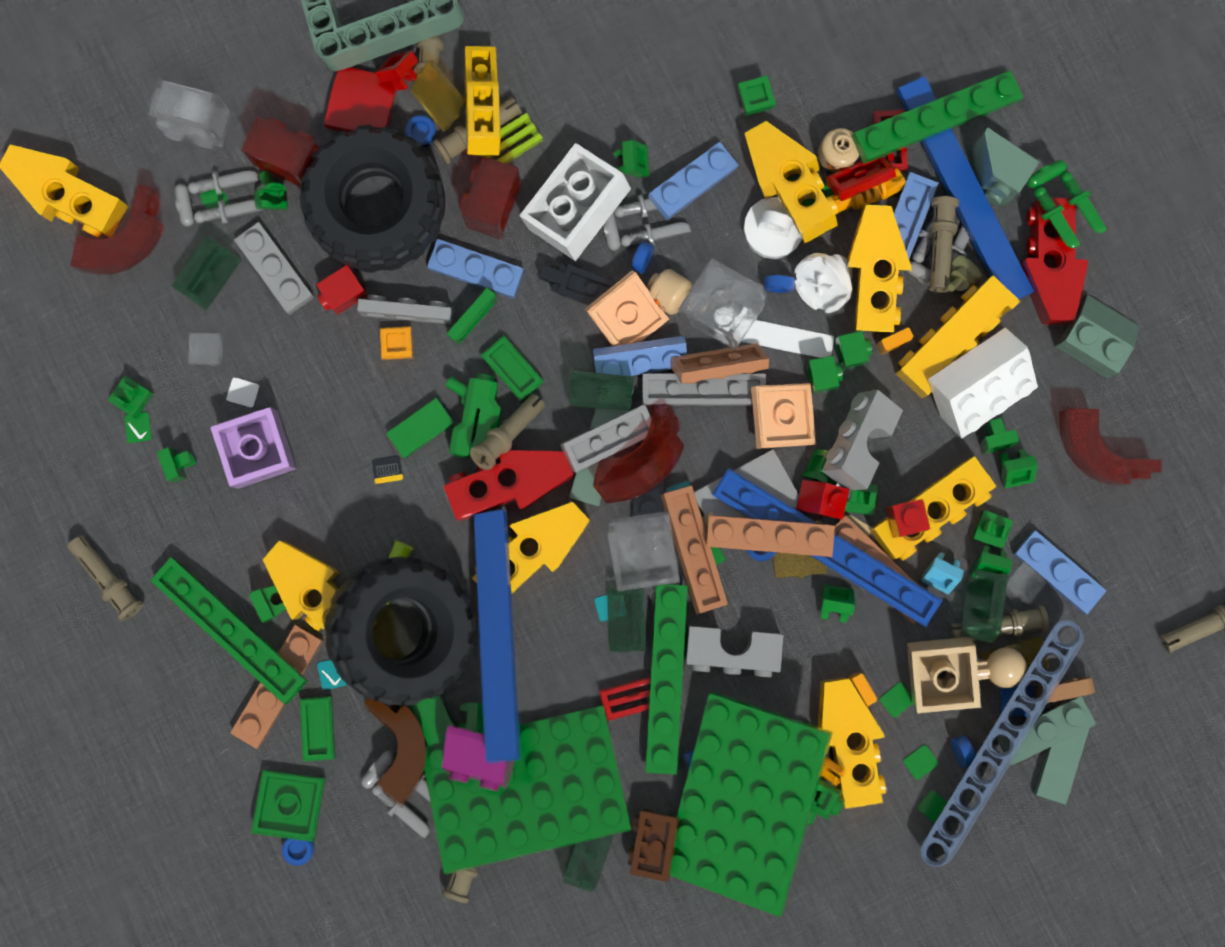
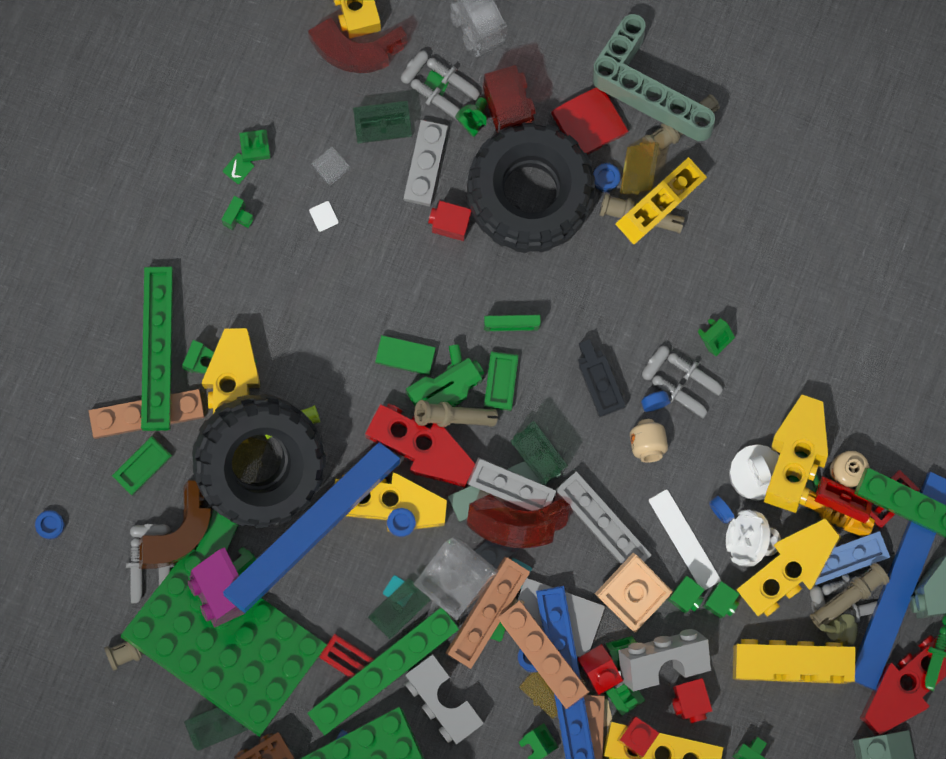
camera: 45 degrees right, 5 degrees down
(112, 588) = (116, 248): dark tan pin -> none
(253, 448) = (293, 256): lavender brick -> none
(288, 806) = (73, 492): green tile -> none
(328, 676) = (184, 443): teal sticker -> none
(387, 469) = (357, 358): black sticker -> none
(396, 343) = (448, 288): light orange tile -> none
(397, 69) = (633, 124): red tile -> none
(405, 309) = (476, 274): light grey plate -> none
(475, 268) = (546, 296): medium blue plate -> none
(490, 197) = (602, 264): clear red brick -> none
(511, 127) = (653, 254): lime tile -> none
(557, 555) = (401, 522): none -> blue tile
(575, 201) = (651, 322): white brick -> none
(626, 312) = (607, 424): light nougat tile -> none
(639, 357) = (587, 461): medium blue plate -> none
(693, 181) = (738, 389): medium blue plate -> none
(719, 363) = (630, 517): nougat plate -> none
(723, 303) = (672, 483): clear brick -> none
(756, 95) = (835, 380): green tile -> none
(894, 341) = (754, 623): light orange tile -> none
(912, 447) = (691, 700): none -> red brick
(983, 382) = (778, 708): white brick -> none

